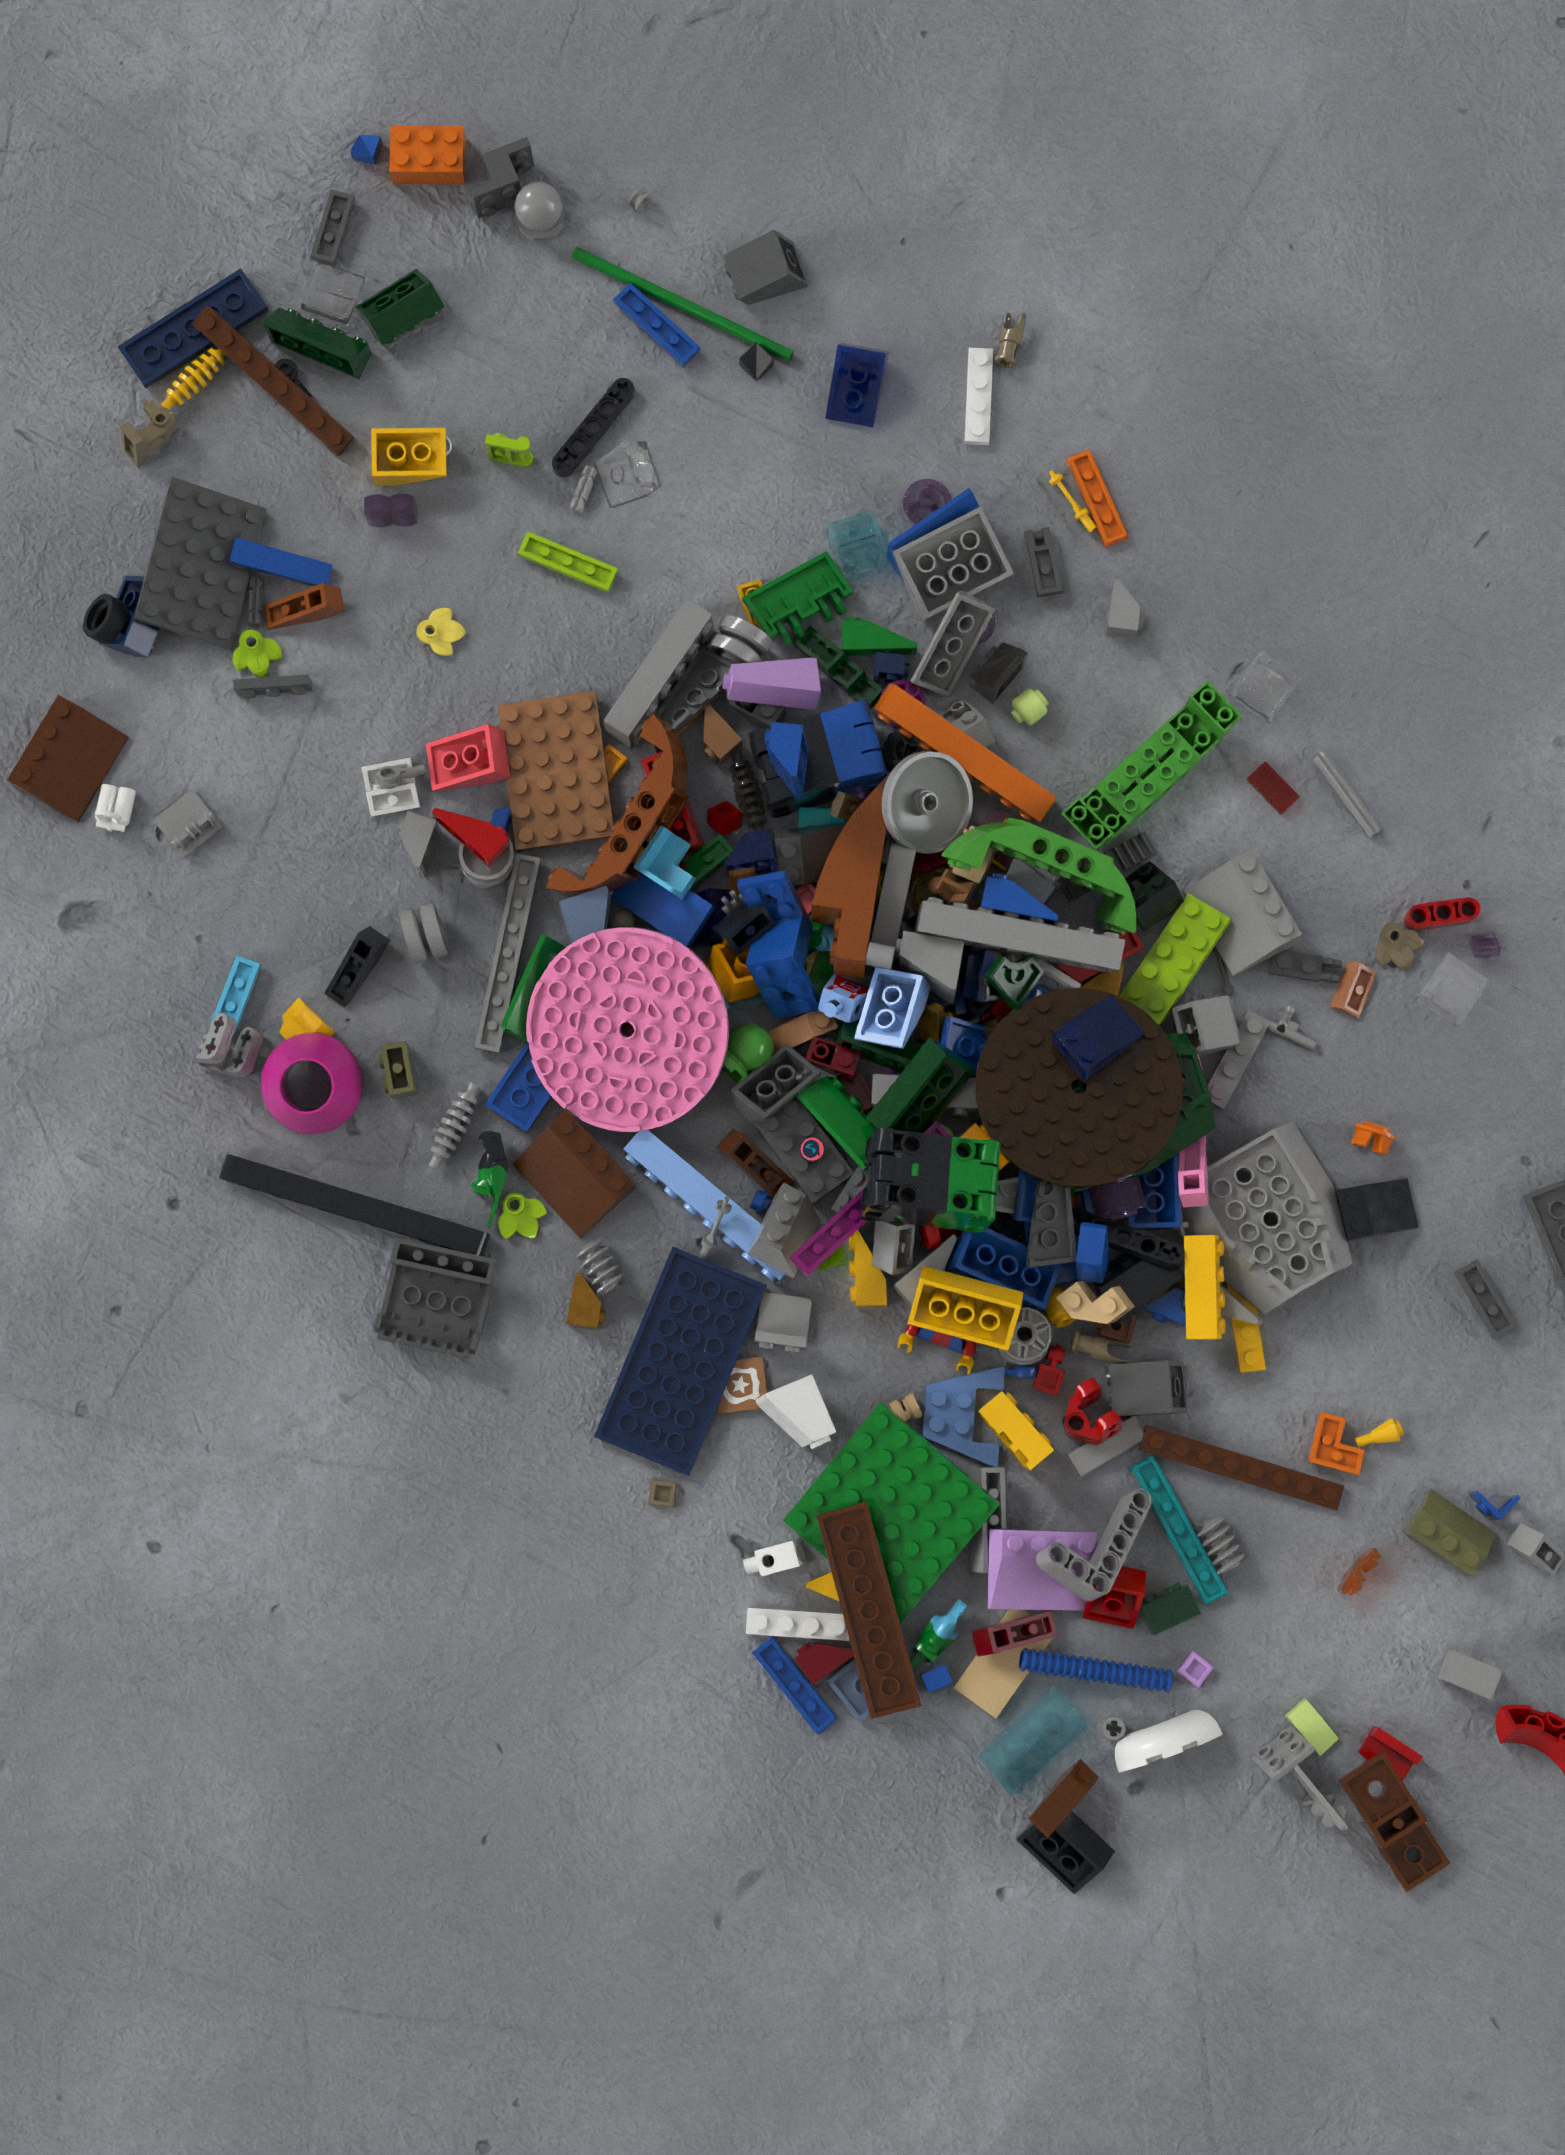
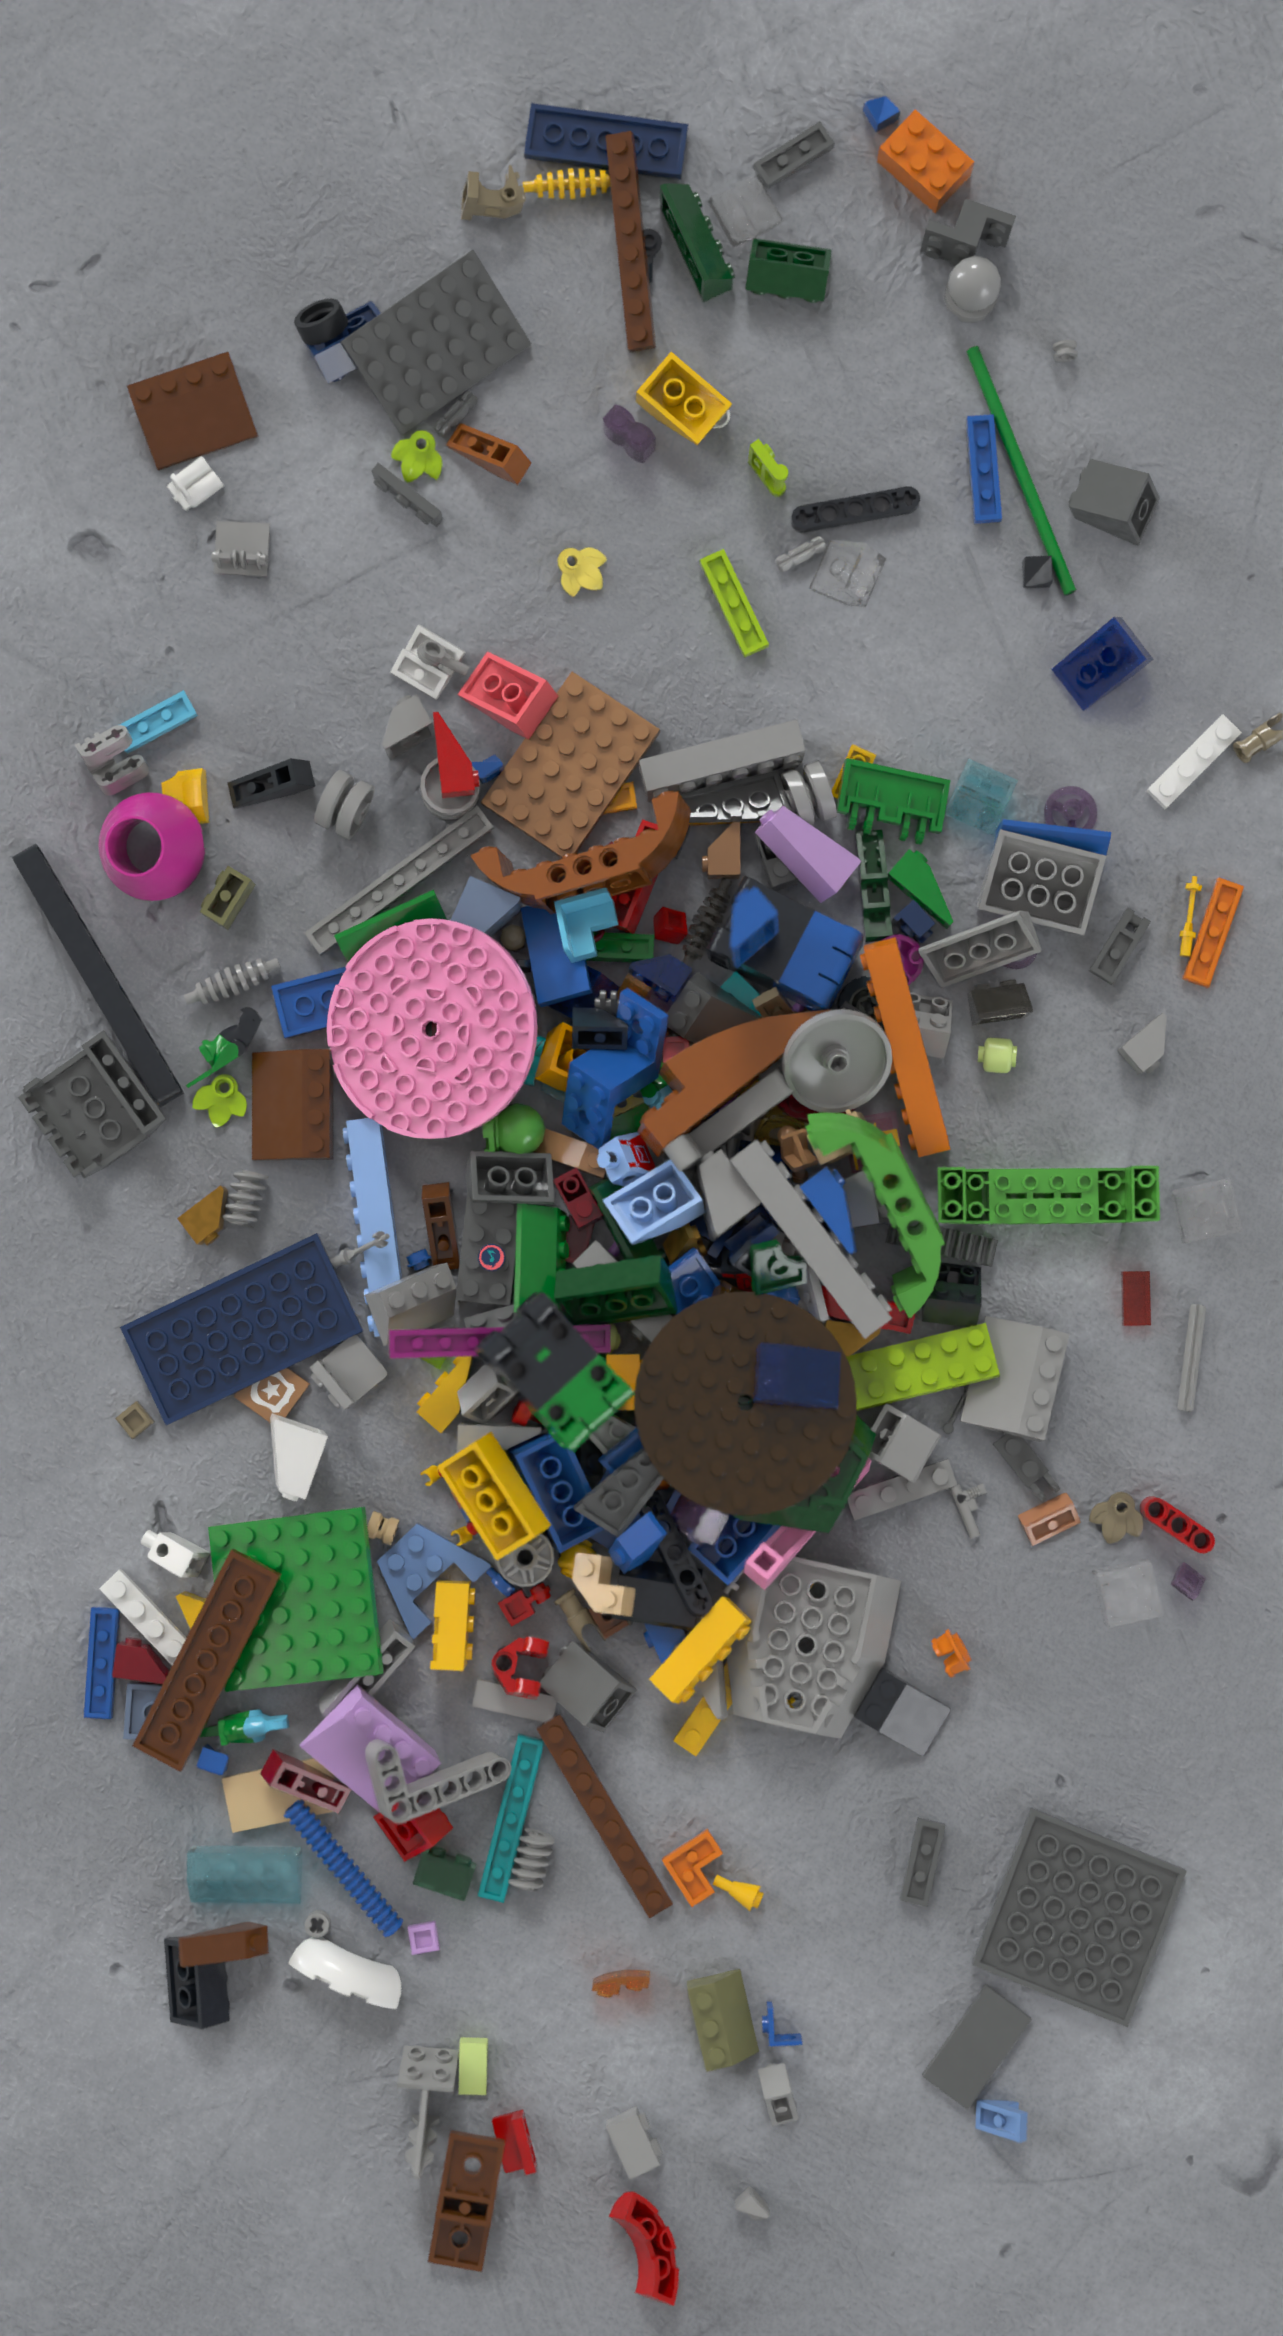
camera: 45 degrees right, 5 degrees up
(279, 563) = (501, 399): blue tile -> none

